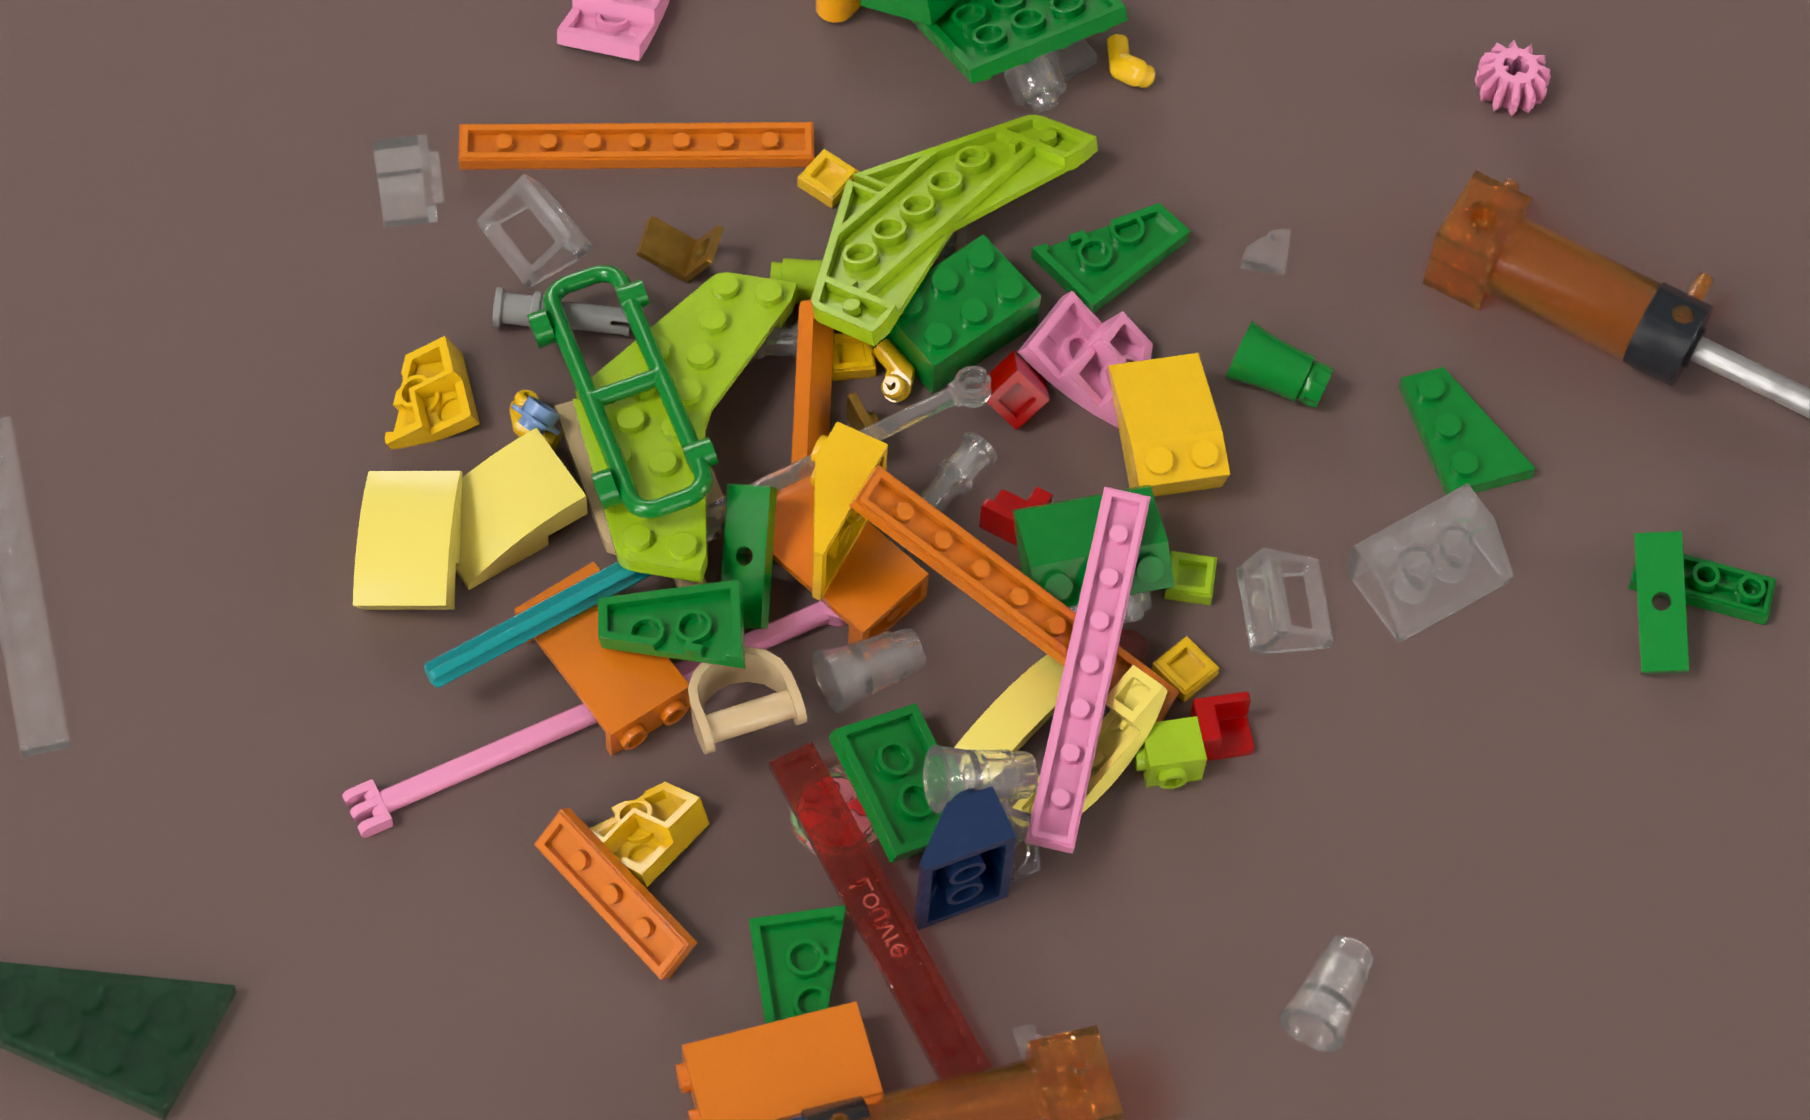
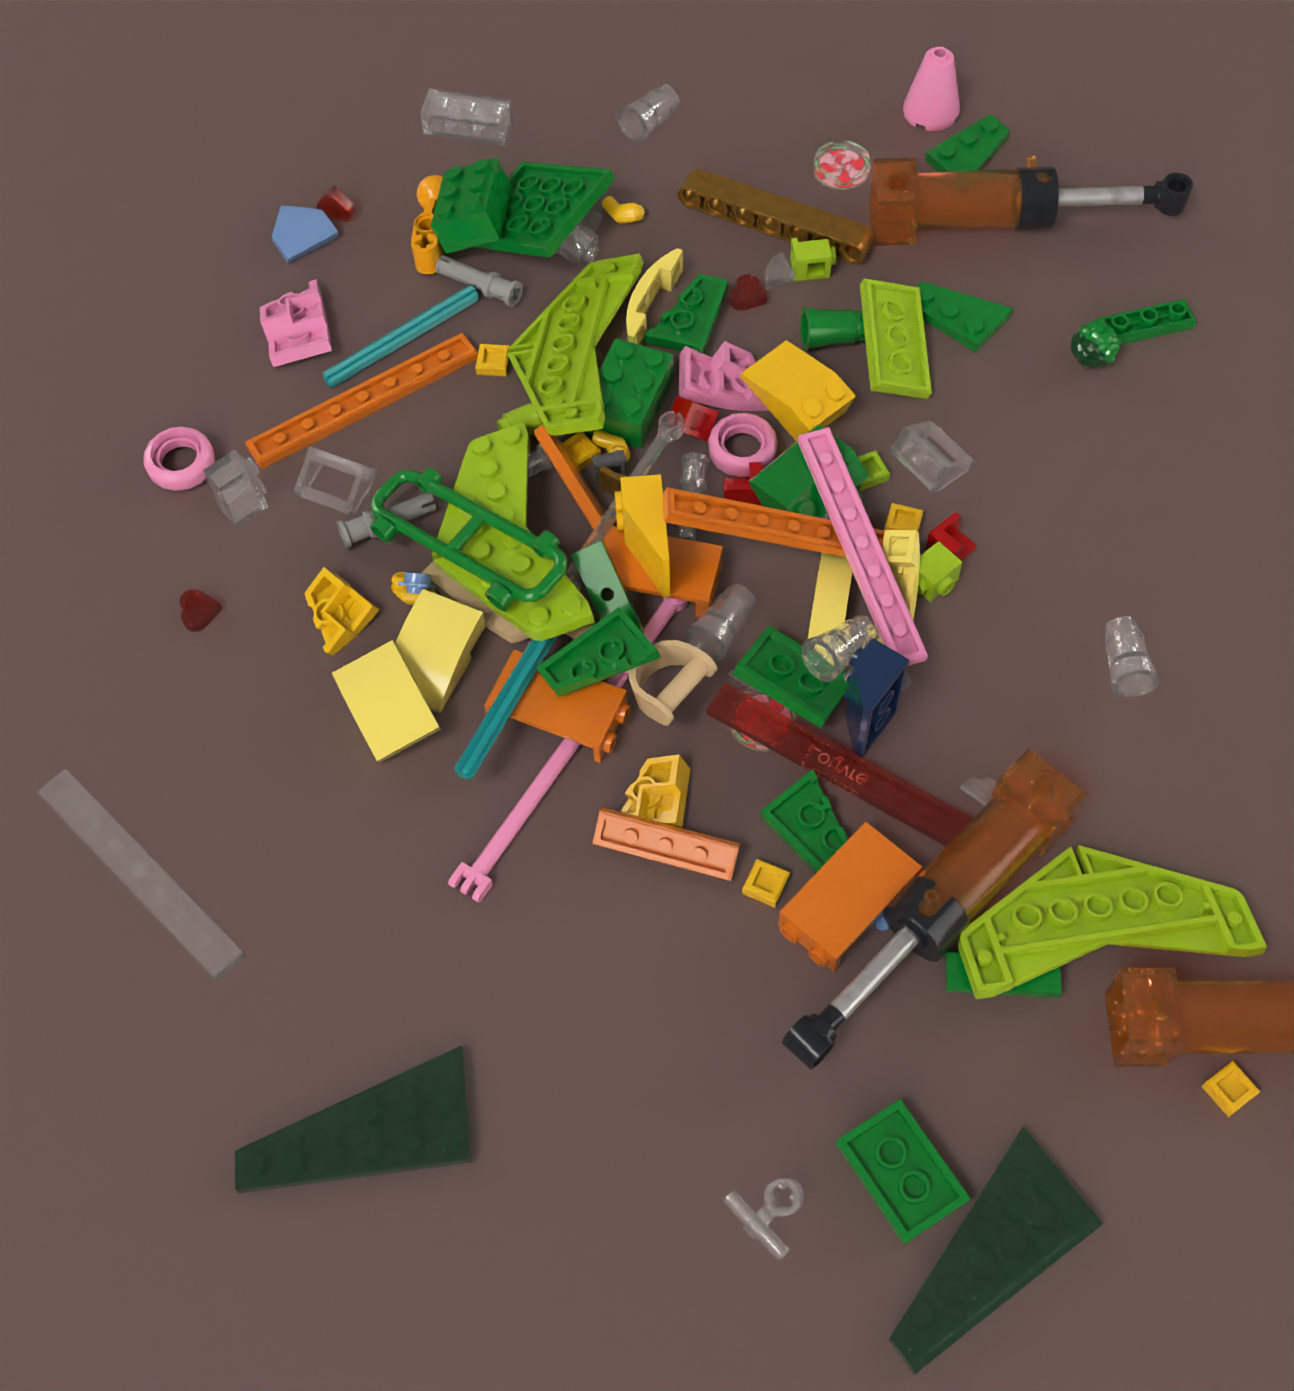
camera: 25 degrees left, 0 degrees up
(274, 307) = (198, 609): none -> clear red tile
(360, 76) = (169, 440): none -> bright pink wheel
(677, 251) = (434, 446): pearl gold bracket -> none
(700, 1006) = (766, 883): none -> yellow tile
(737, 86) = (400, 336): none -> teal axle
(874, 395) = (614, 461): none -> dark grey tile
(890, 76) = (489, 283): none -> light grey pin
(1054, 426) = (738, 424): none -> bright pink wheel
(1115, 177) = (661, 275): none -> light yellow slope
(1206, 262) = (747, 293): none -> clear red tile
(1318, 177) = (774, 214): none -> pearl gold beam
(1319, 260) = (811, 259): none -> lime brick
(1344, 426) = (895, 339): none -> lime tile
(1431, 563) = (997, 388): clear slope -> none
(1458, 145) = (842, 165): none -> clear tile
(1512, 78) = (843, 112): bright pink gear -> none
(1600, 575) = (1095, 344): none -> piece
(1638, 220) = (969, 147): none -> green wing
(1648, 117) = (934, 92): none -> bright pink cone
(1661, 574) = (1130, 324): green tile -> none

